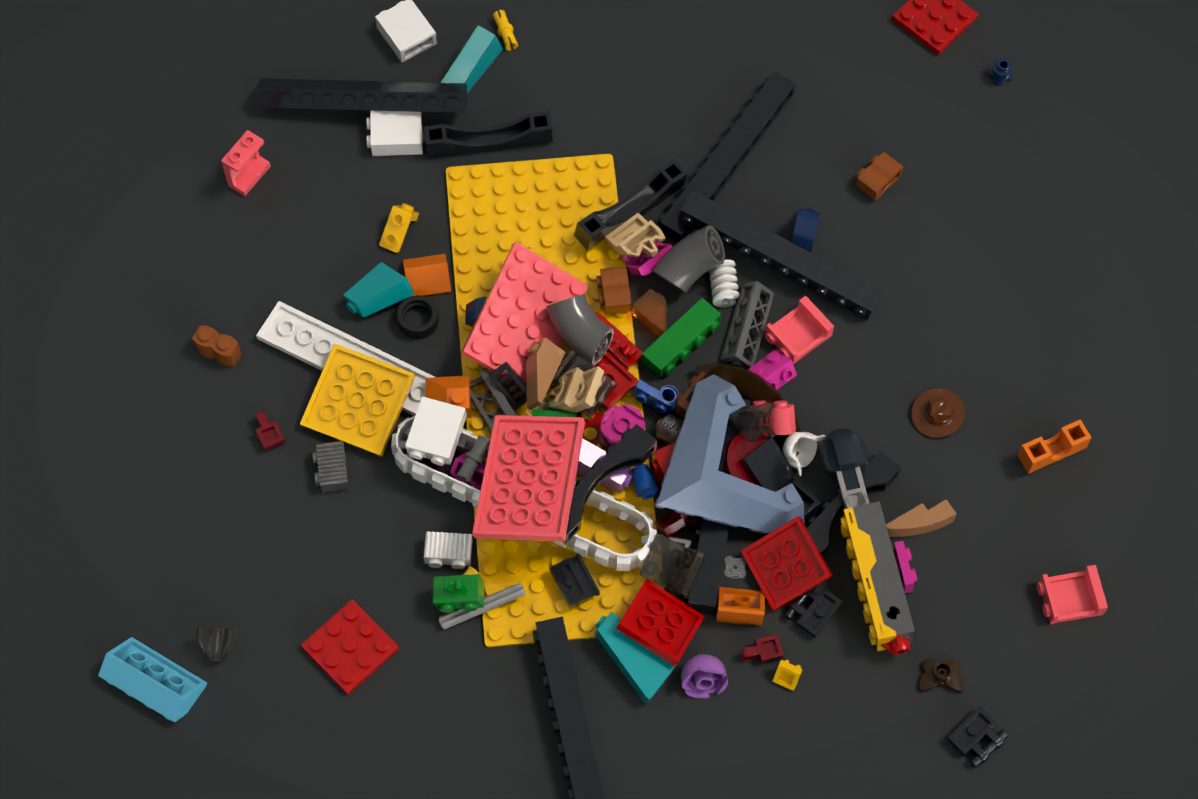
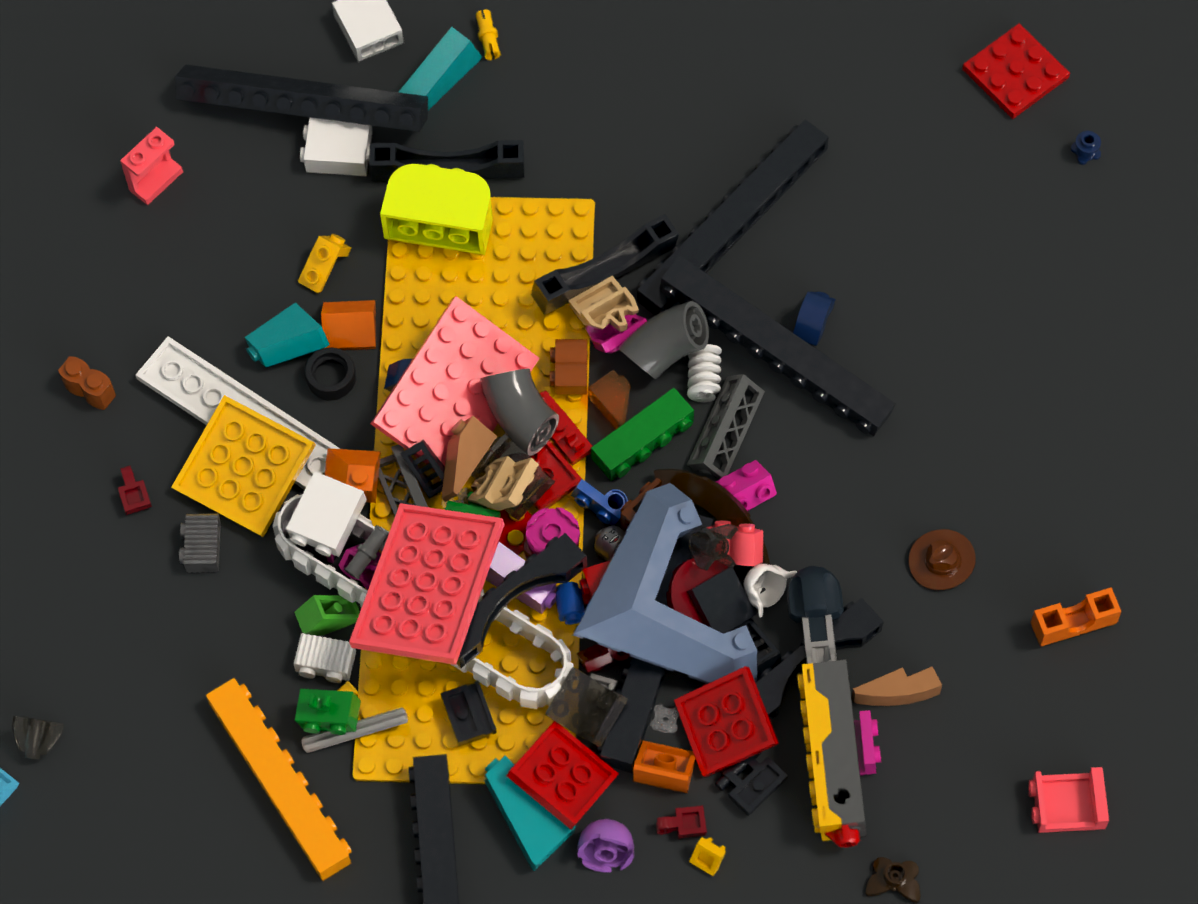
camera: 10 degrees right, 0 degrees up
(350, 647) = (192, 760): red plate -> none
(425, 654) = (278, 778): none -> light orange brick
(444, 514) = (326, 614): none -> bright green slope
(488, 173) = (437, 208): none -> neon yellow brick
(799, 330) = (787, 441): coral panel -> none
(879, 175) = (914, 261): dark orange brick -> none

